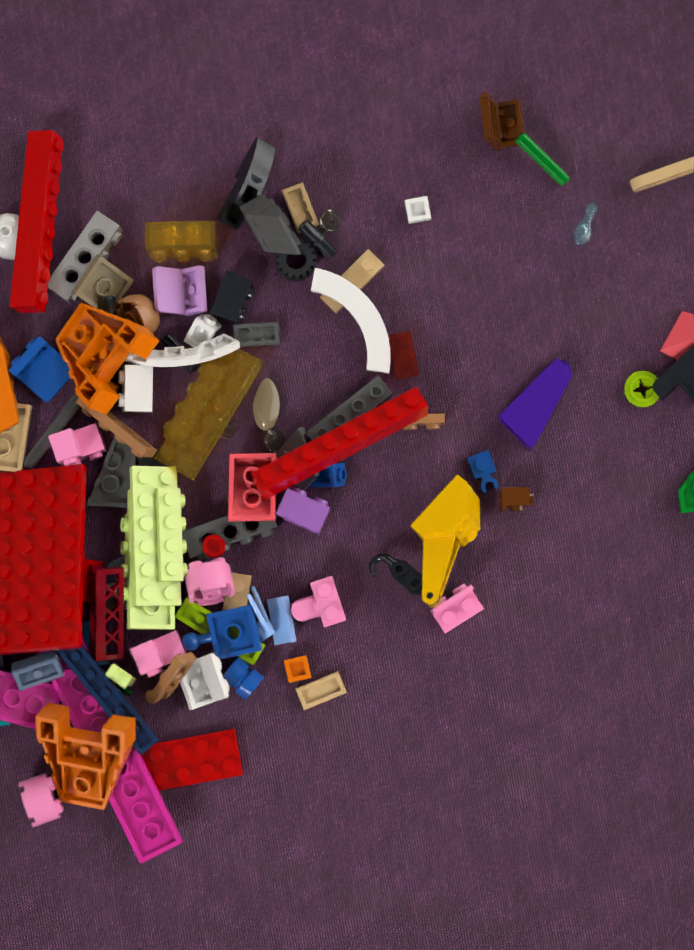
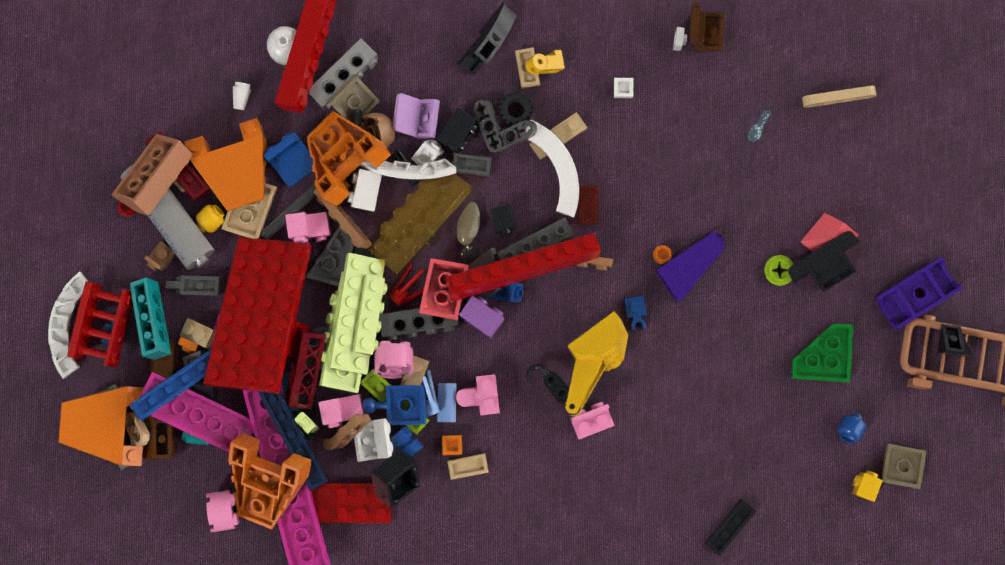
camera: 10 degrees right, 0 degrees up
(37, 669) = (239, 404): sand blue slope -> none
(181, 240) = (425, 76): clear yellow brick -> none
(201, 503) = (399, 293): none -> red plant
(213, 546) = (403, 331): red plate -> none
(238, 721) = (395, 478): none -> black container
(270, 226) = (500, 78): dark grey slope -> none
(285, 294) = (501, 136): none -> dark grey beam
(305, 392) = (502, 220): none -> black brick
(316, 200) = (545, 64): none -> yellow leg
(317, 239) = (536, 96): black axle -> none
(330, 221) = (549, 83): clear smoke piece -> none
(473, 139) = (679, 38): none -> white plate
(501, 397) = (662, 254): none -> orange plate
(515, 498) = (658, 340): reddish brown brick -> none
(542, 159) = (733, 65): green axle -> none
(642, 701) = (730, 527): none -> black tile

